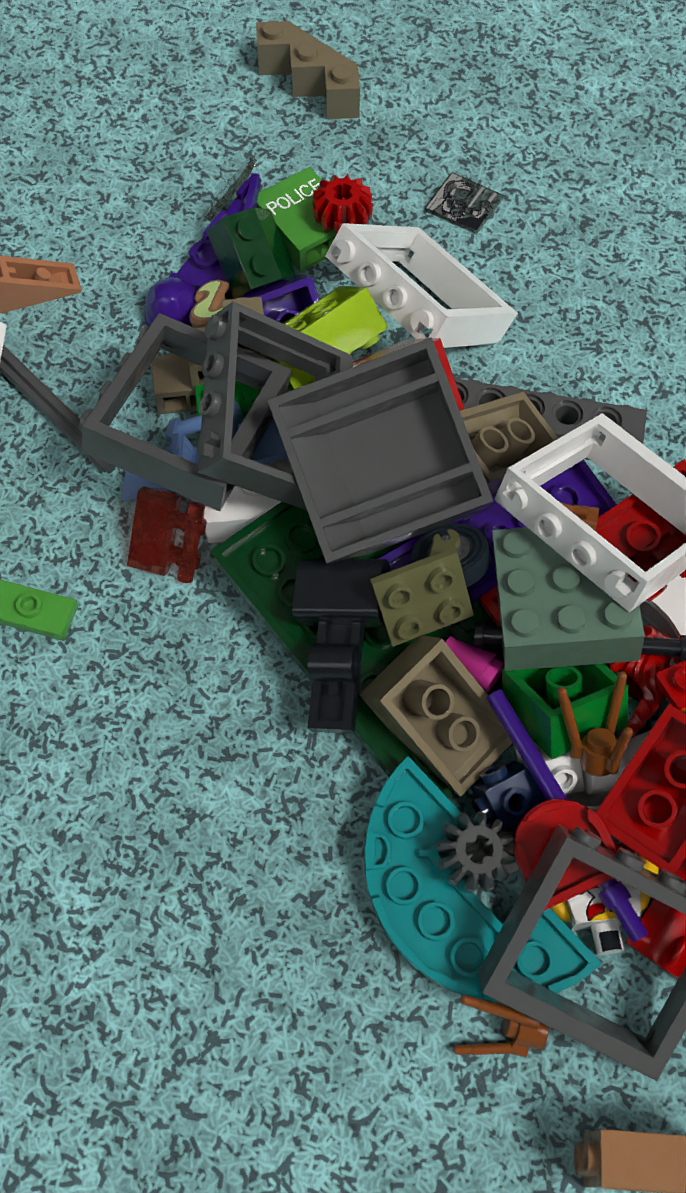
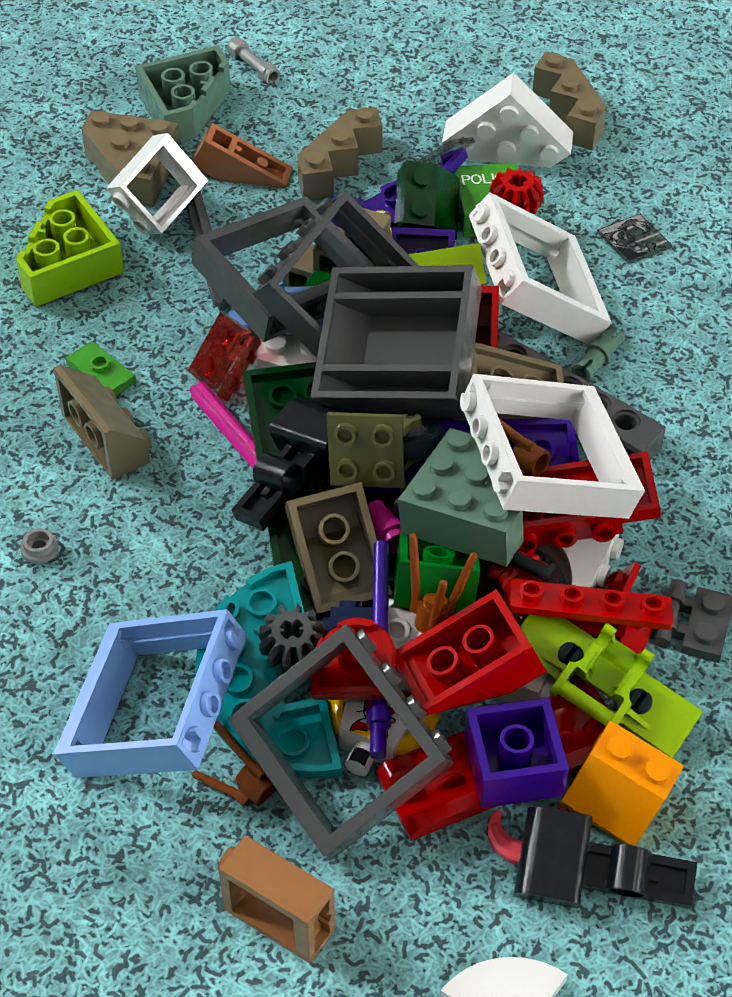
camera: 30 degrees right, 15 degrees down
(84, 680) = (101, 422): none -> dark tan slope
(102, 857) = (37, 538): none -> light grey plate
(117, 228) = (337, 151): none -> dark tan brick
(213, 611) = (224, 421): none -> dark pink axle
(277, 125) = (511, 127): none -> white brick
(304, 1012) = (108, 679): none -> light blue window
(519, 351) = (598, 353): none -> sand green pin

